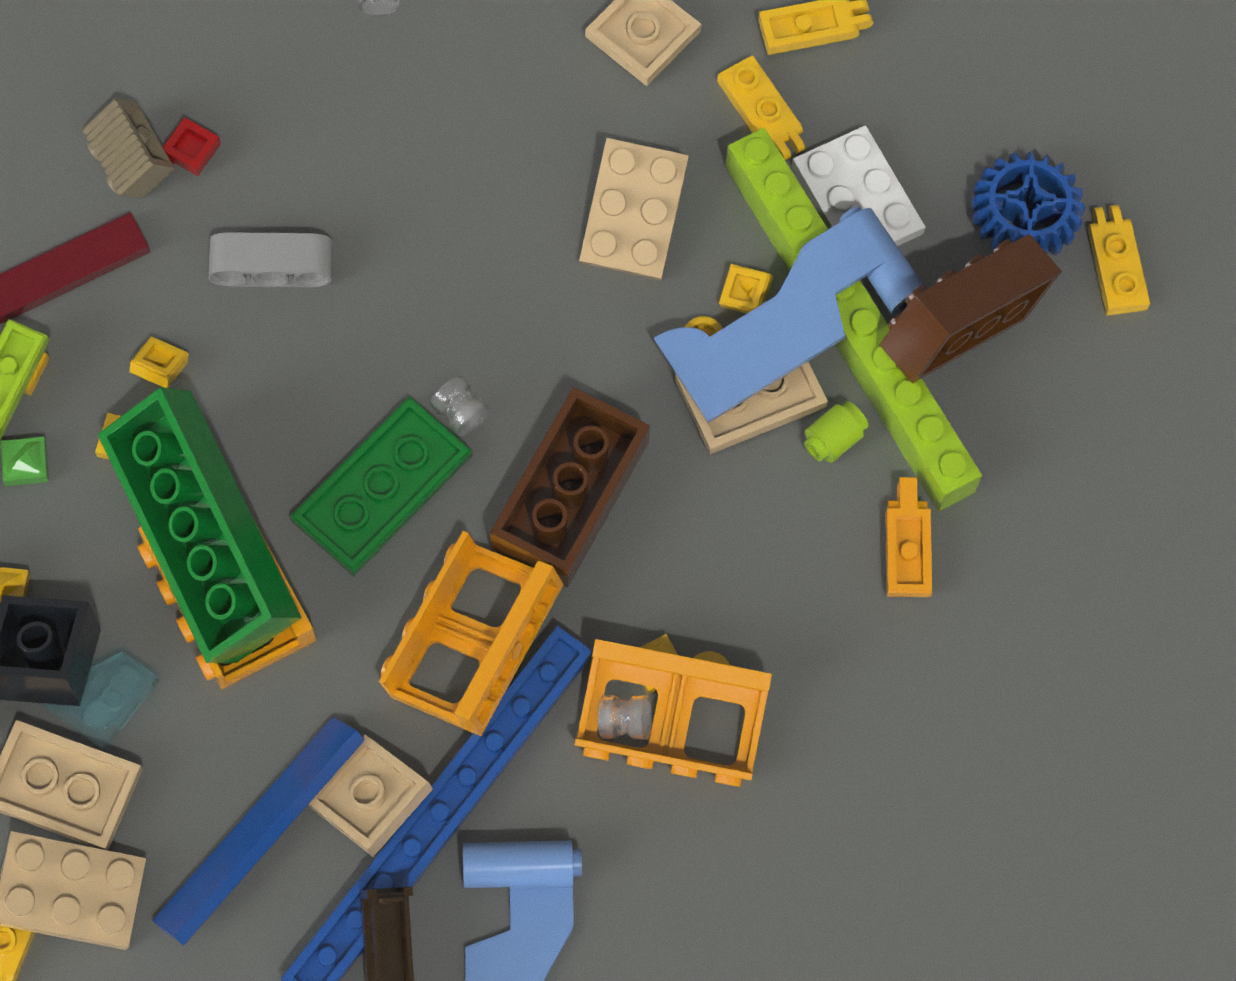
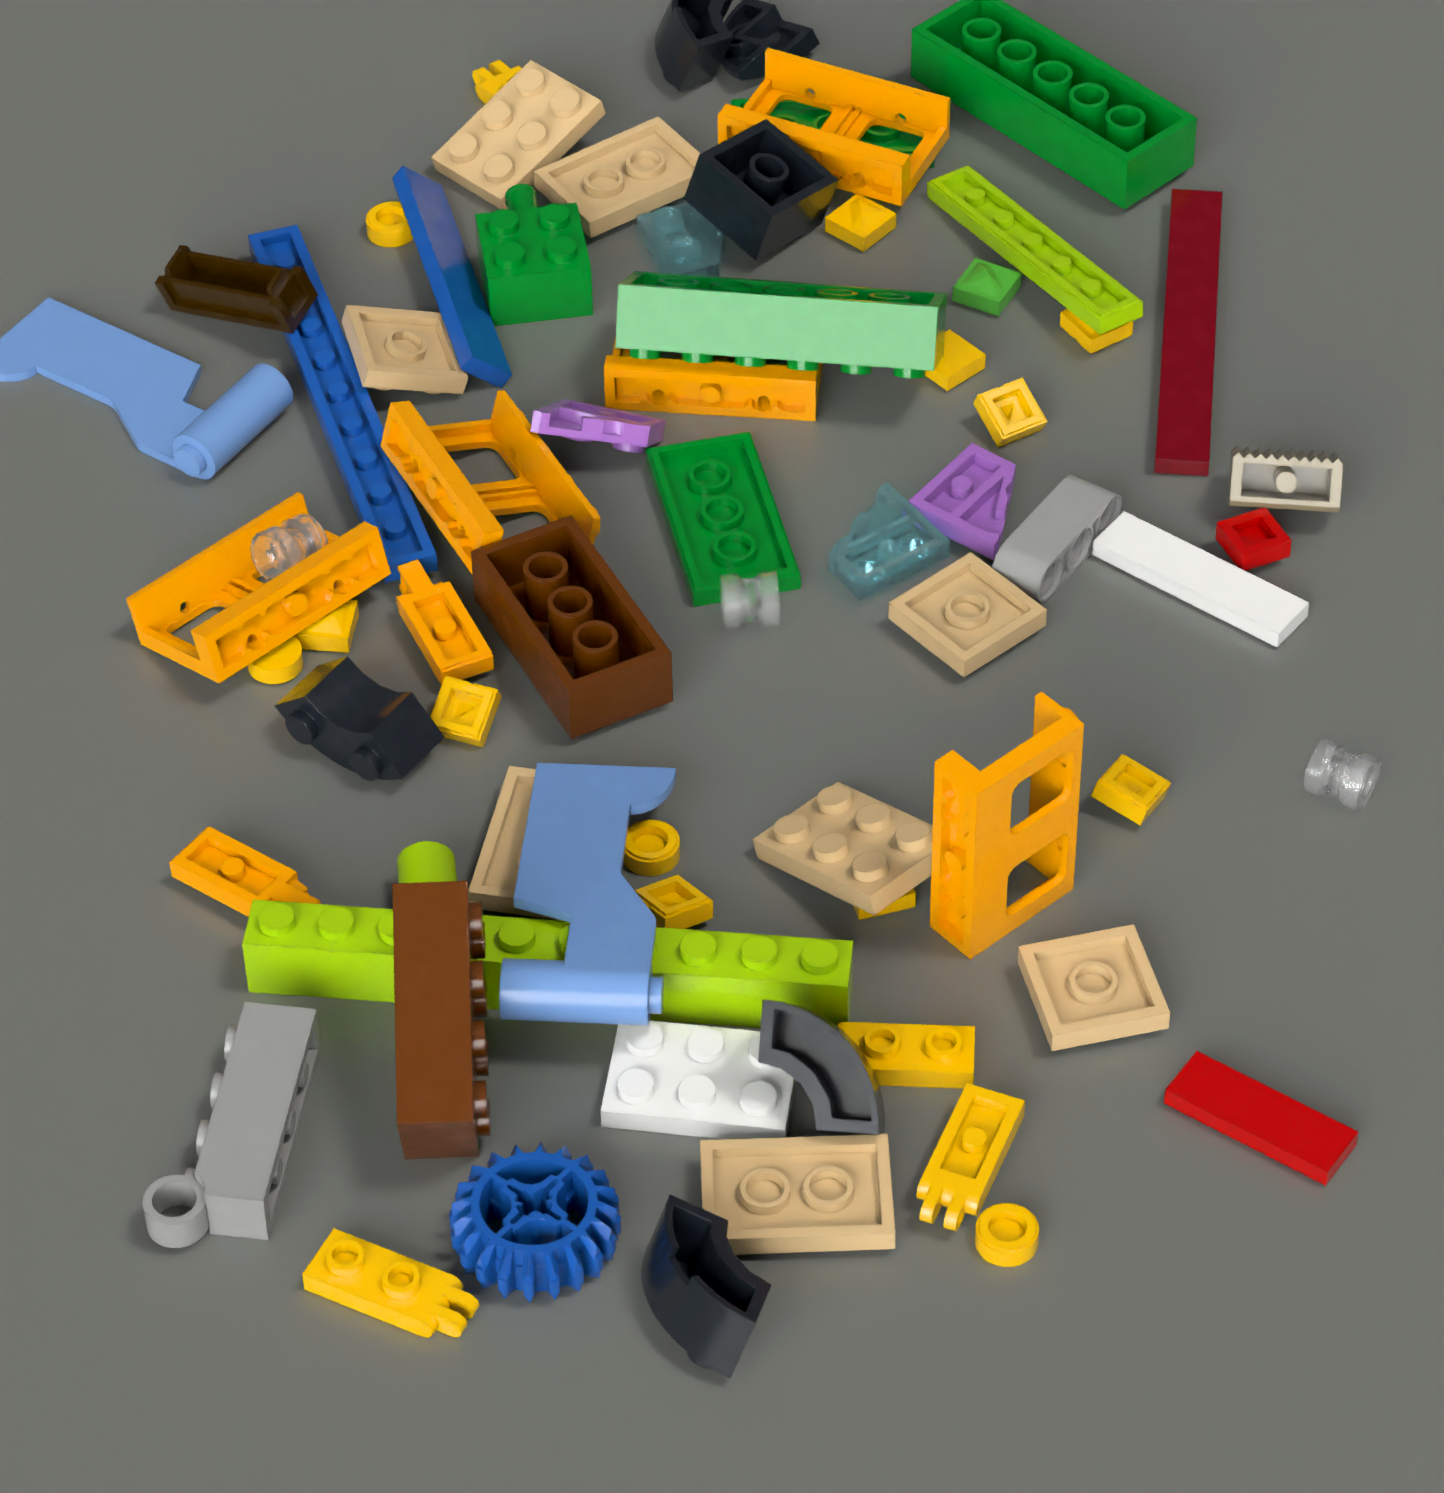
camera: 130 degrees right, 25 degrees down
(208, 776) = (533, 260): none -> green brick
(221, 929) = (388, 225): none -> yellow tile
(244, 159) = (1200, 579): none -> white tile
(266, 336) = (970, 499): none -> medium lavender wing
(346, 361) = (886, 545): none -> clear light blue wing
(359, 610) = (592, 422): none -> medium lavender wing
(378, 273) = (967, 614): none -> tan plate
(467, 97) = (1131, 789): none -> yellow tile
(613, 584) = (441, 625): none -> light orange hinge
(637, 77) = (974, 837): none -> light orange window
(676, 516) = (465, 710): none -> yellow tile
(739, 566) = (359, 721): none -> black brick
(829, 111) = (826, 1066): none -> black brick
(905, 92) = (801, 1192): none -> tan plate
(1013, 88) = (700, 1286): none -> black brick
(1081, 397) = (250, 1131): none -> light grey hinge

